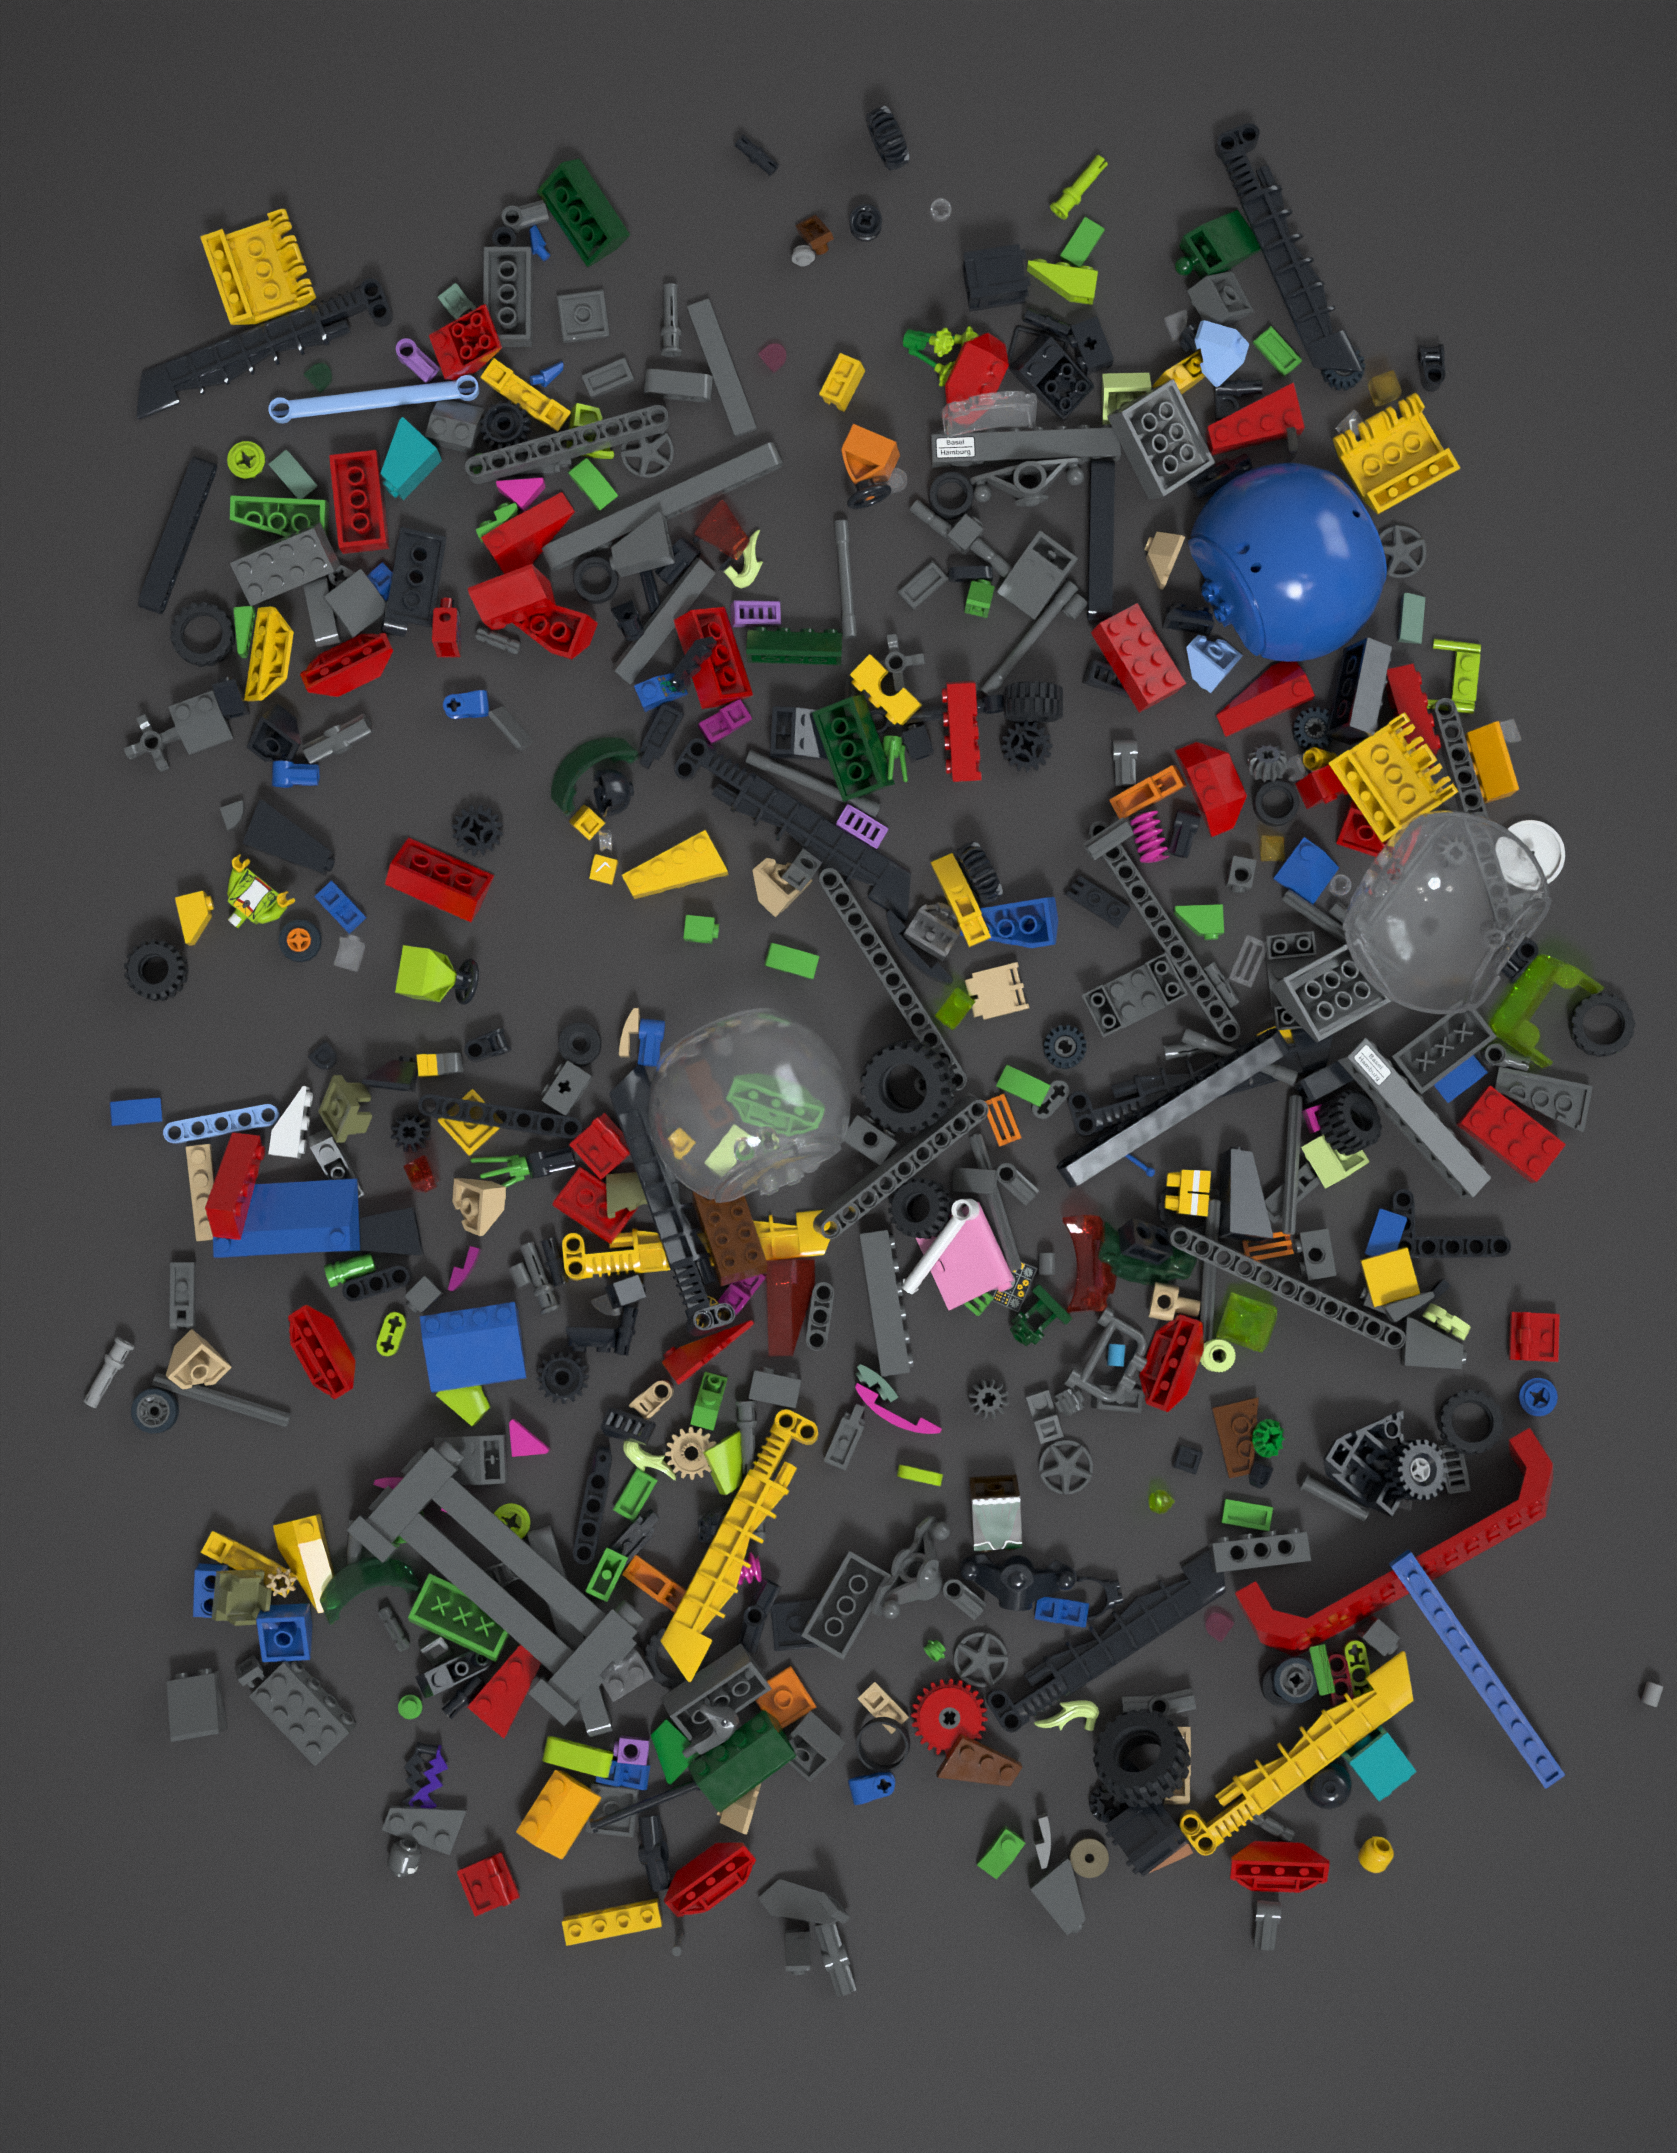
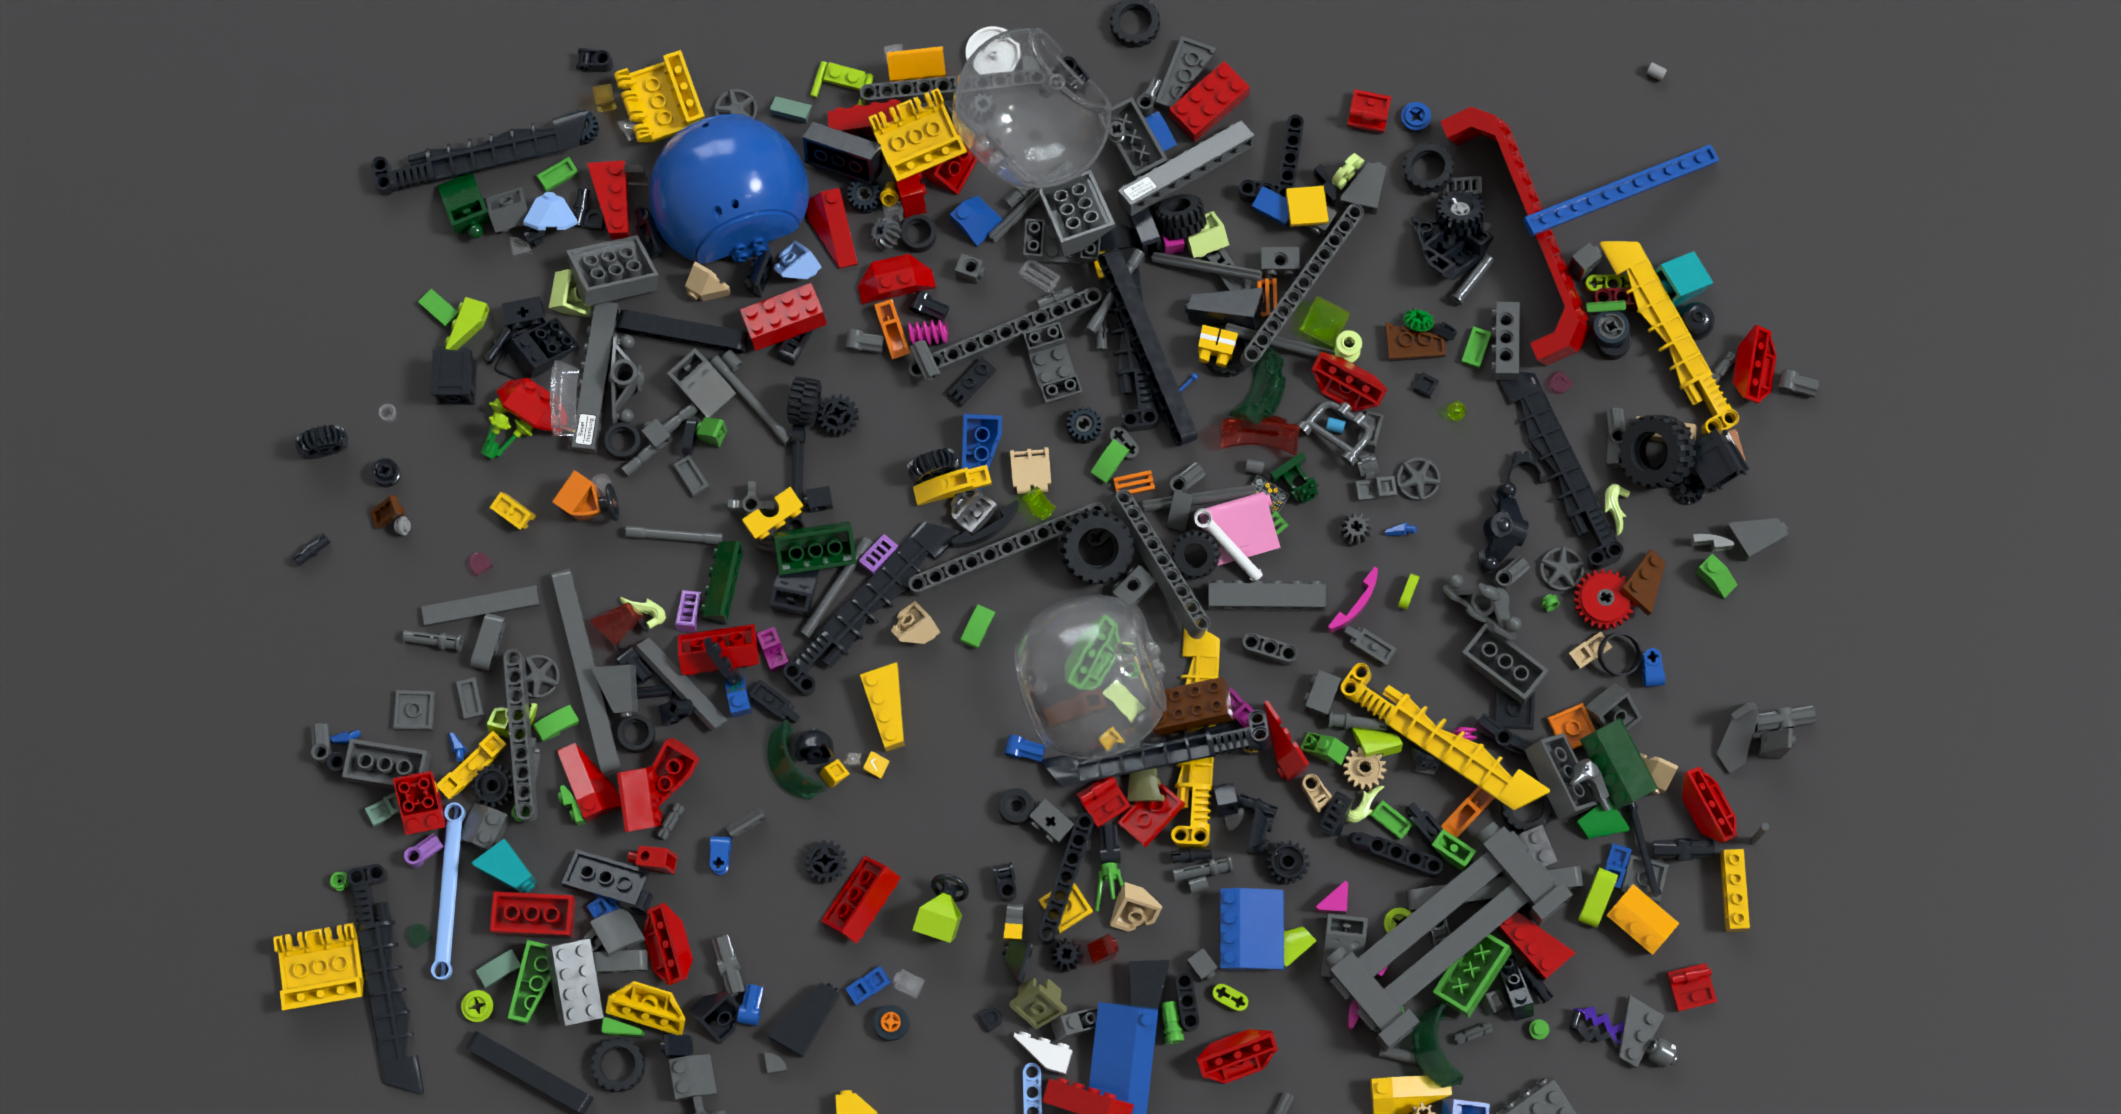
camera: 80 degrees left, 10 degrees down
(253, 897) = (848, 1054): torso -> none
(363, 267) = (339, 876): none -> bright green plate
(460, 1275) = (1190, 931): magenta slope -> none
(521, 491) = (550, 782): dark pink slope -> none
(583, 212) = (328, 695): dark green slope -> none
(631, 1027) = (1008, 761): tan slope -> none
(642, 1745) = (1601, 845): medium lavender brick -> none
(700, 929) = (939, 694): bright green brick -> none
(788, 1297) = (1253, 674): clear red wedge -> none
(801, 870) = (906, 604): dark grey brick -> none
(870, 1377) = (1325, 616): sand green slope -> none
(892, 749) = (821, 518): bright green plant -> none
(962, 731) = (817, 460): red wedge -> none
(995, 1513) = (1447, 536): slope -> none
(997, 1455) = (1401, 529): none -> blue bar
(1062, 1611) = (1532, 499): blue slope -> none
(1072, 195) = (397, 308): lime pin -> none
(1099, 1862) = (1733, 503): dark tan piece -> none
(1144, 1241) = (1250, 385): black brick -> none
(1177, 1304) = (1301, 373): tan piece -> none
(1185, 373) = (560, 243): yellow slope -> none
(1202, 919) = (1001, 303): bright green slope -> none
(1272, 848) = (953, 243): clear yellow slope -> none
(1347, 886) = (993, 191): clear bush -> none
(1375, 1854) = (1754, 292): yellow head -> none
(1399, 1309) = (1333, 201): dark grey slope -> none
(1450, 1022) = (1116, 126): none -> dark grey bush
(1513, 1015) = (1104, 72): clear neon green windscreen -> none

